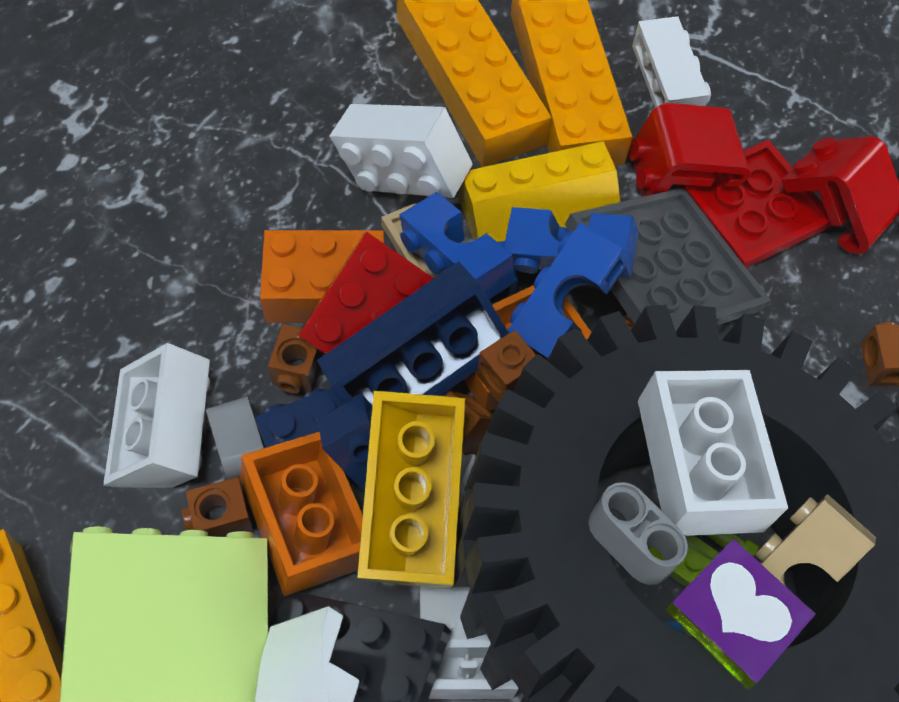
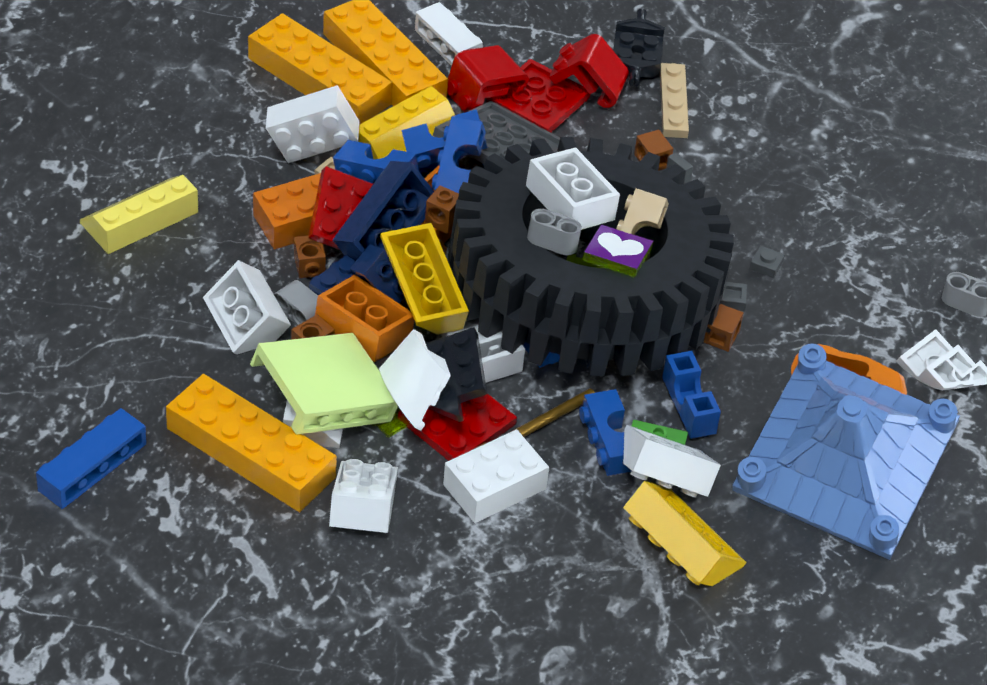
camera: 25 degrees left, 15 degrees down
(115, 205) = (142, 213): none -> light yellow slope

